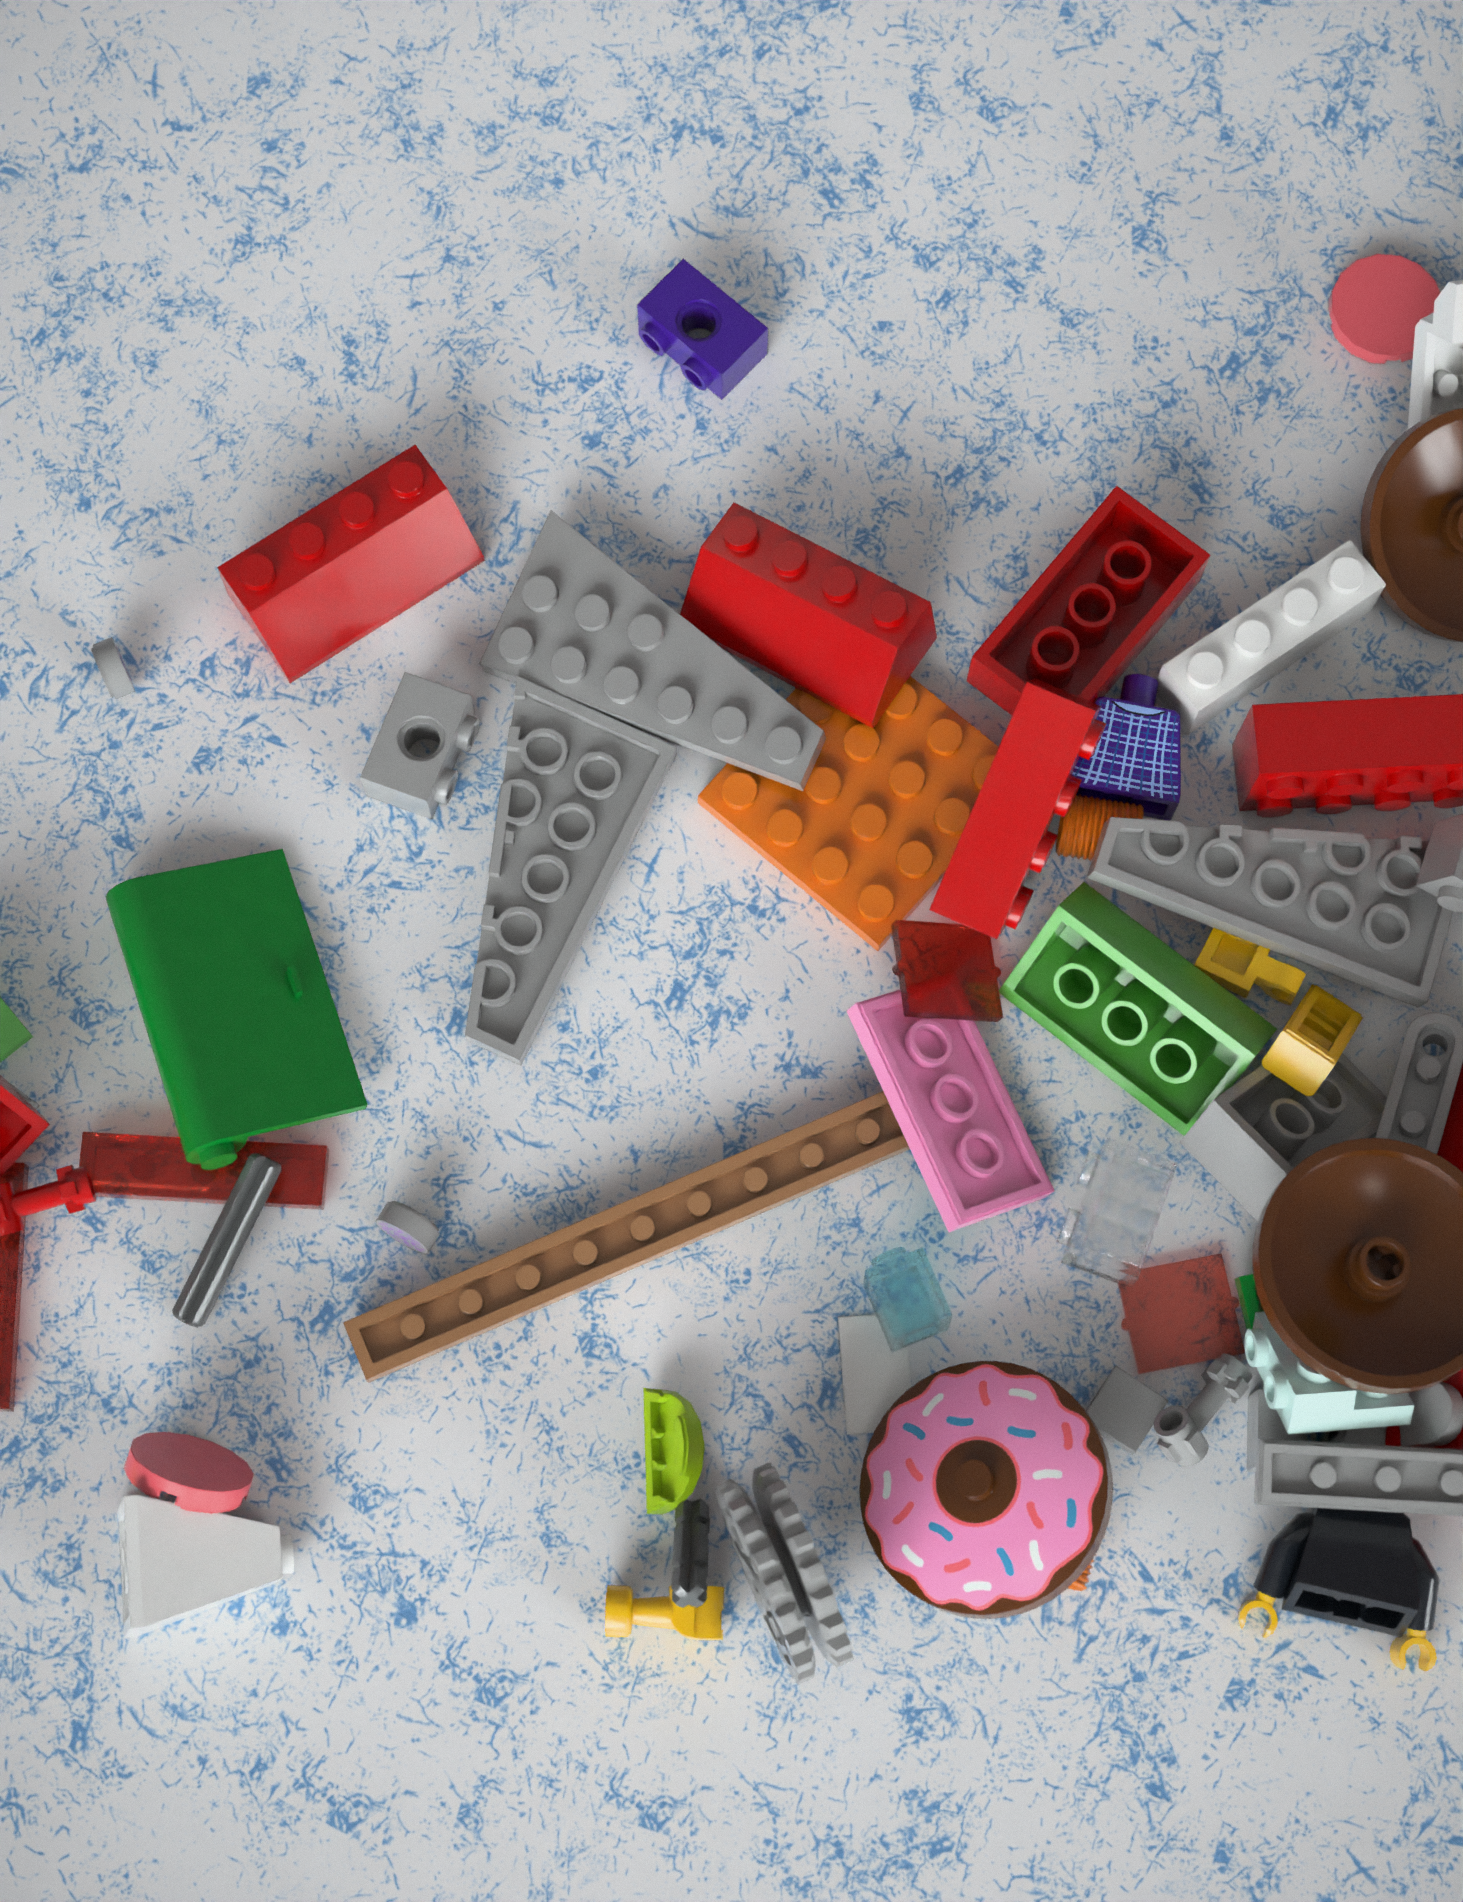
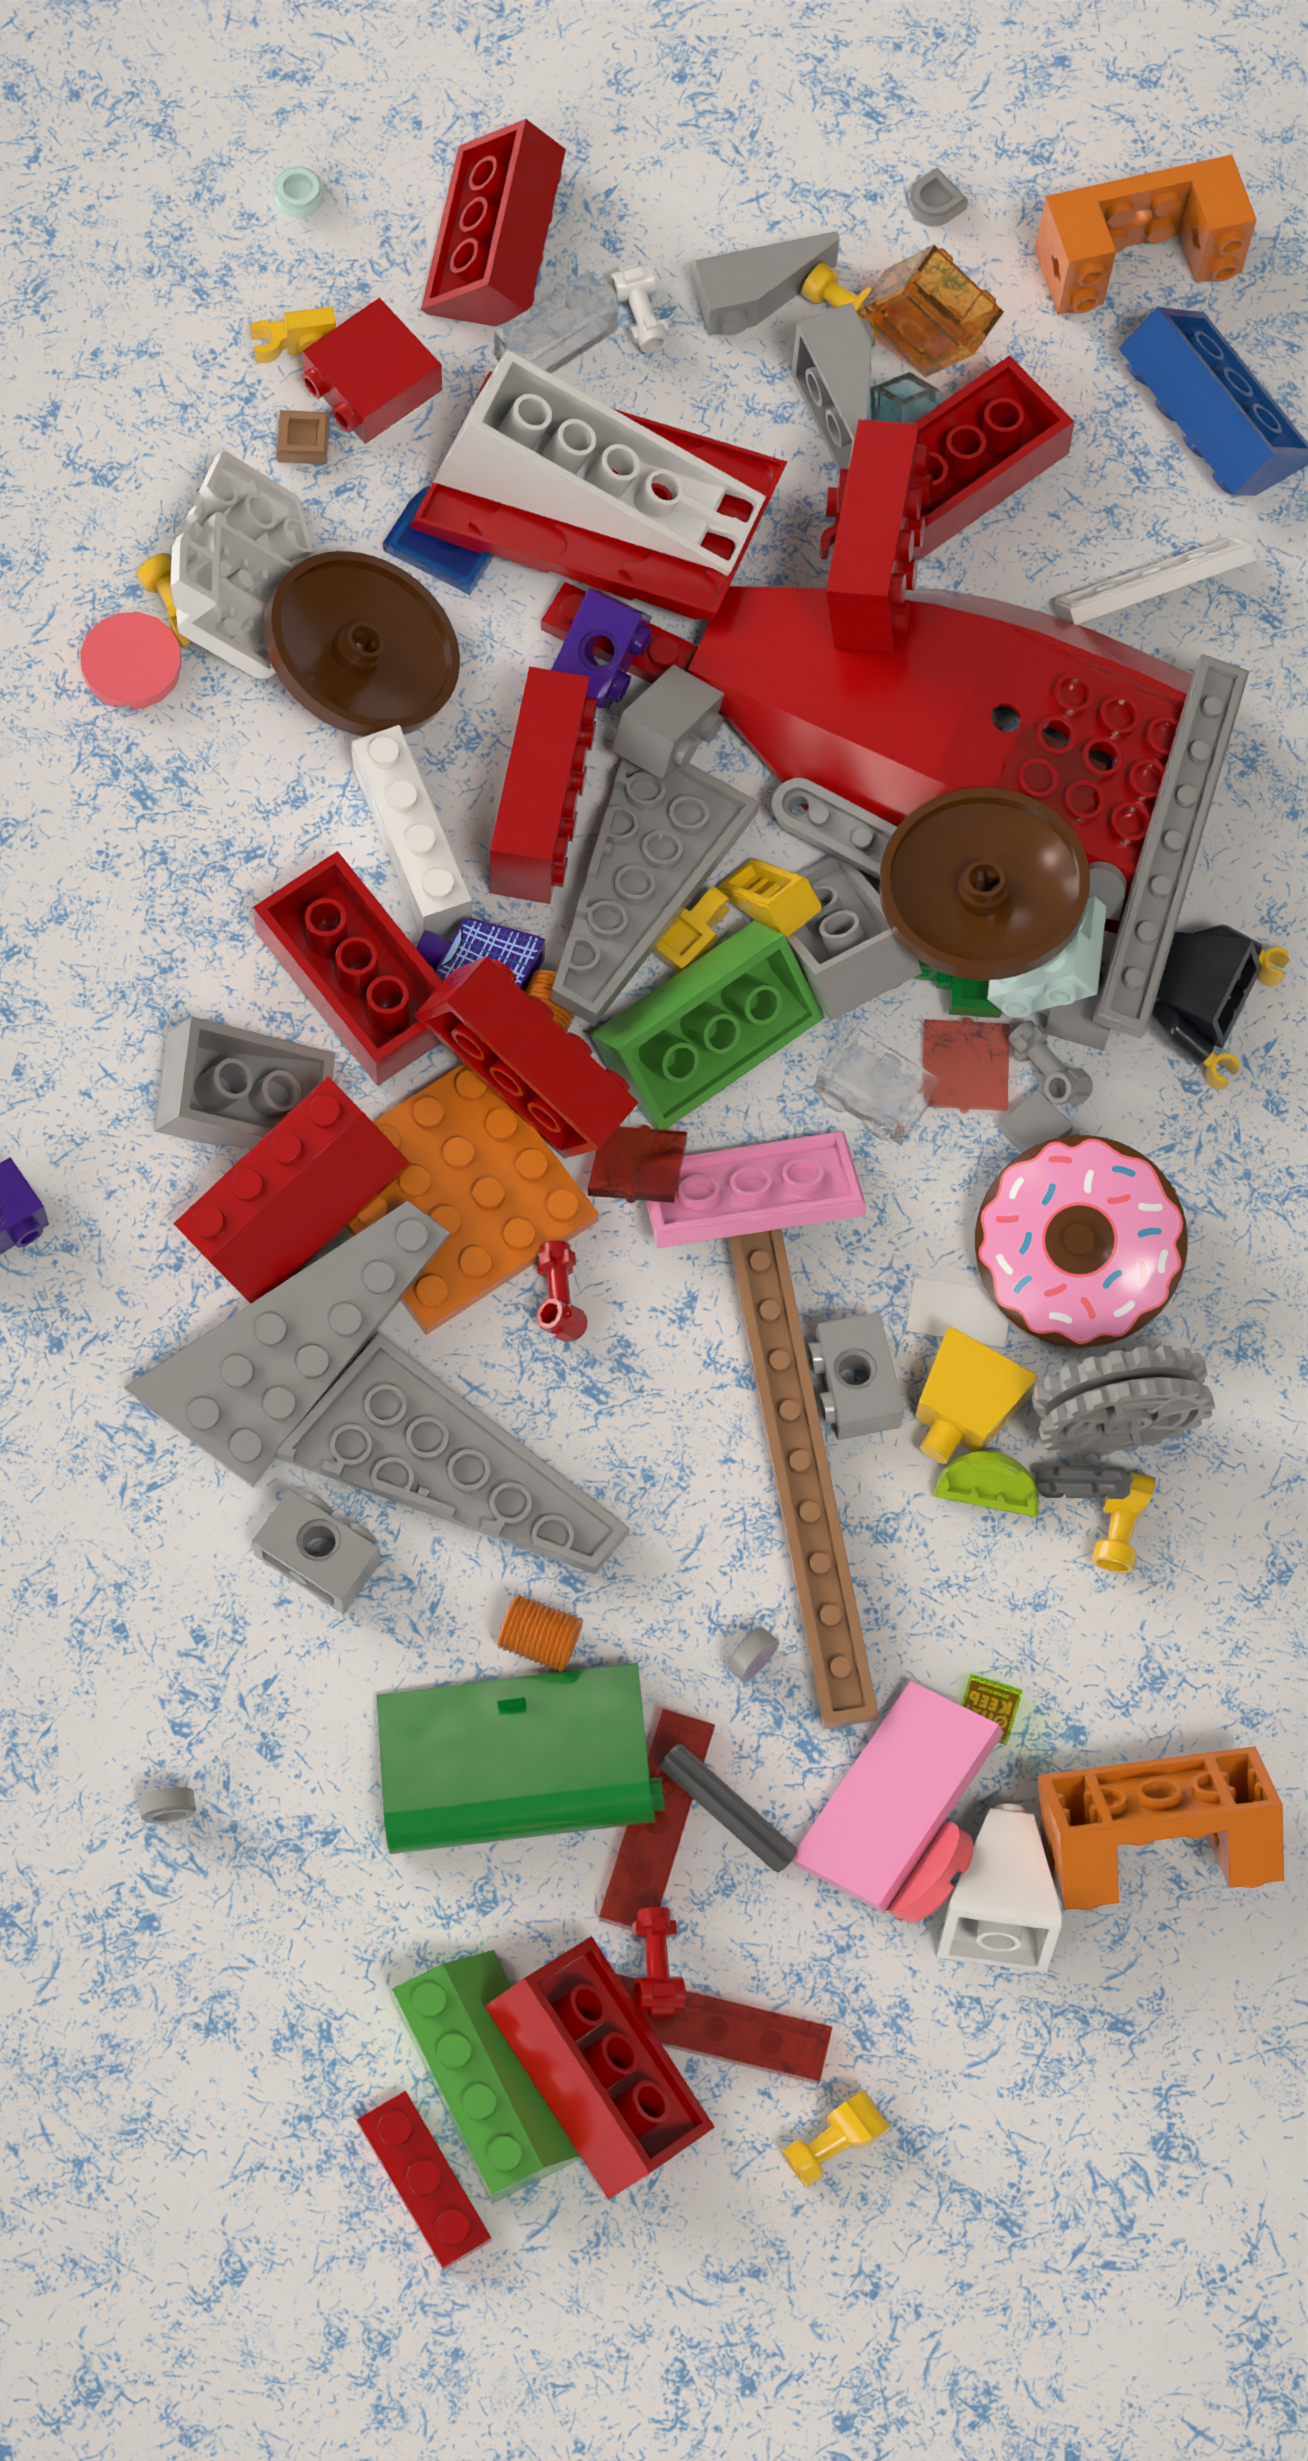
camera: 80 degrees left, 5 degrees down
(278, 1422) = (897, 1796): none -> bright pink tile
(324, 1783) = (1154, 1800): none -> orange plate
(351, 563) = (127, 1573): slope -> none
(380, 994) = (539, 1632): none -> orange piece
(409, 1505) = (993, 1701): none -> clear neon green tile
(738, 1299) = (863, 1346): none -> light grey brick
(745, 930) = (556, 1313): none -> red bar
(766, 1399) = (969, 1396): none -> yellow torso
(906, 1297) = (908, 1265): clear light blue brick -> none
(922, 534) = (232, 1082): none -> light grey slope

